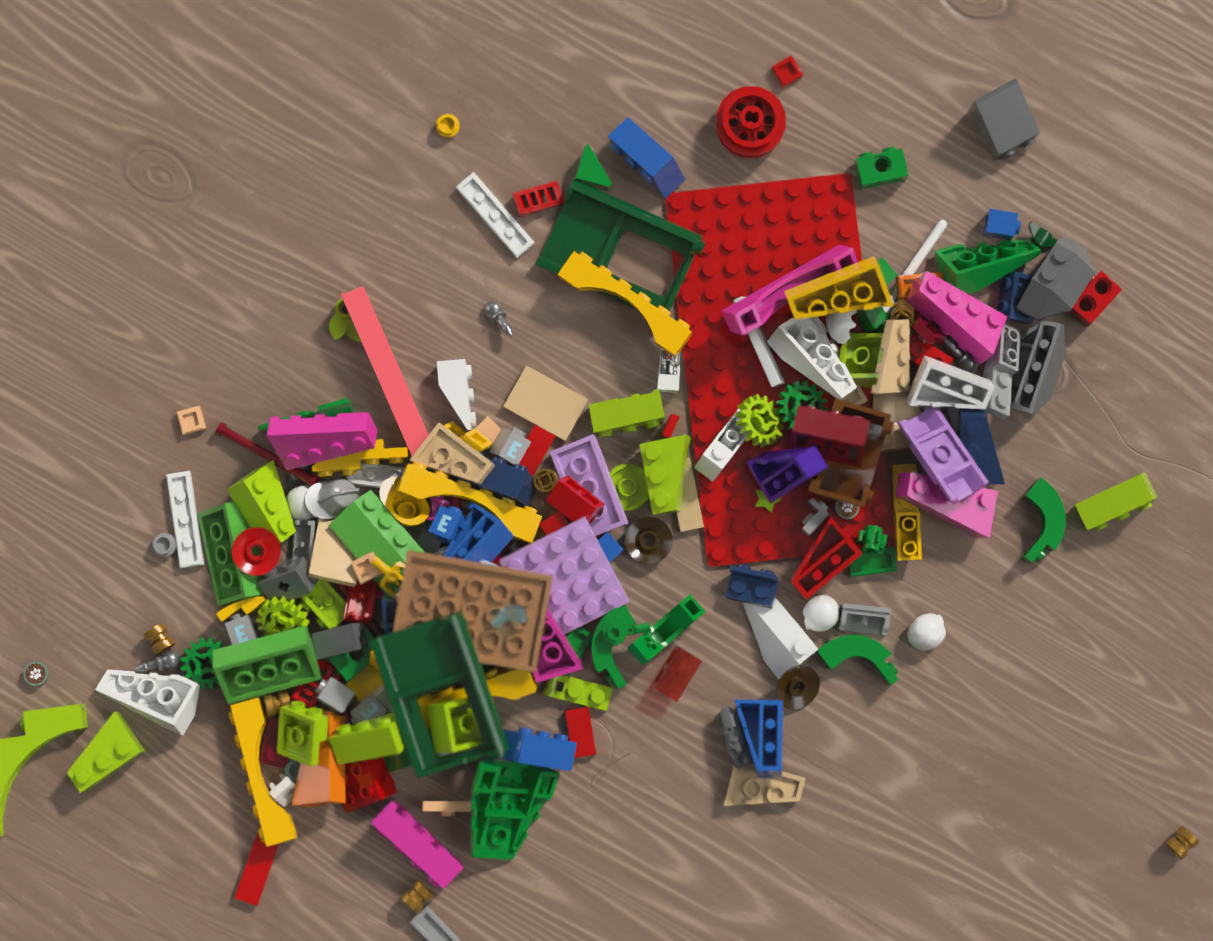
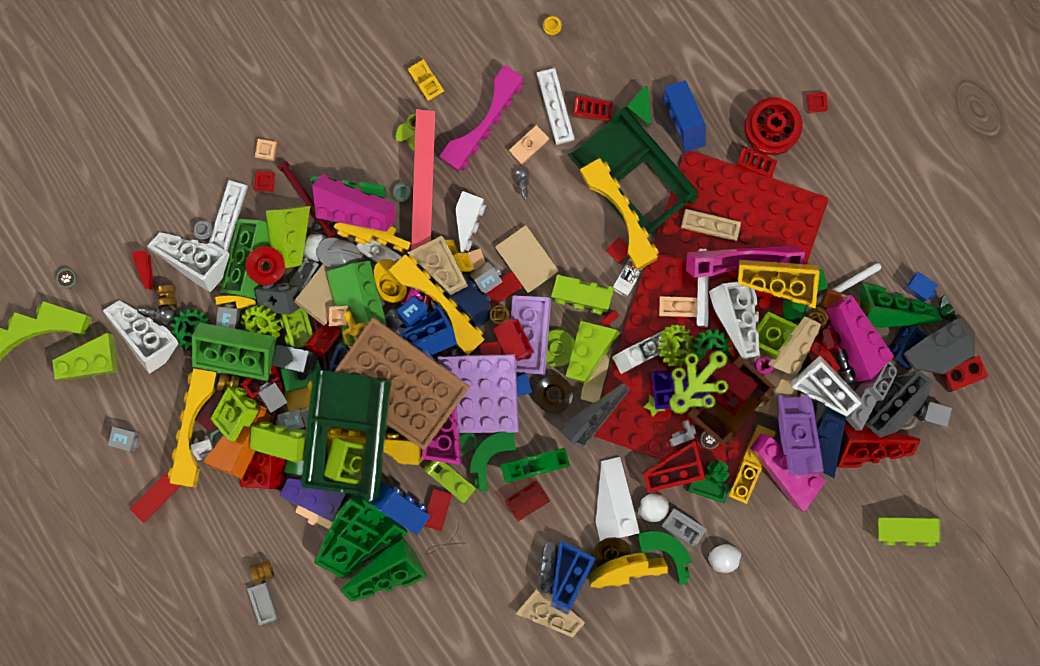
camera: 20 degrees right, 0 degrees up
(116, 616) = (144, 267): none -> red slope
(173, 583) = (197, 261): none -> white wedge
(190, 822) = (124, 439): none -> light grey brick
(207, 457) = (264, 181): none -> red tile
(334, 255) = (425, 80): none -> yellow slope
(369, 395) = (402, 192): none -> sand green tile
(411, 317) = (459, 150): none -> dark pink arch
(418, 844) = (280, 534): dark pink wedge -> none
(443, 786) = (317, 501): none -> dark purple wedge
(486, 273) = (529, 145): none -> light nougat plate
(509, 613) = (424, 398): clear light blue arm -> none
(560, 823) = (391, 568): none -> green wedge
(615, 632) = (497, 450): green plate -> none
(643, 344) = (618, 250): none -> red tile
(701, 554) = (587, 422): none -> dark grey wedge
(733, 266) = (710, 225): none -> tan tile
(734, 181) = (746, 151): none -> red slope
(740, 376) = (678, 307): none -> light nougat plate
(752, 586) = (613, 463): dark blue bracket -> none
(801, 453) = (696, 384): none -> lime plant
(815, 701) = (620, 569): none -> yellow slope
(839, 325) = (767, 304): white hair -> none
(861, 400) = (757, 366): none -> dark pink bush
(868, 175) = (841, 207): green brick -> none
(1004, 120) = (960, 212): dark grey slope -> none
(1024, 432) = (865, 446): none -> red wedge
(1053, 518) = (857, 519): green arch -> none
(1083, 359) = (935, 414): none -> light grey brick

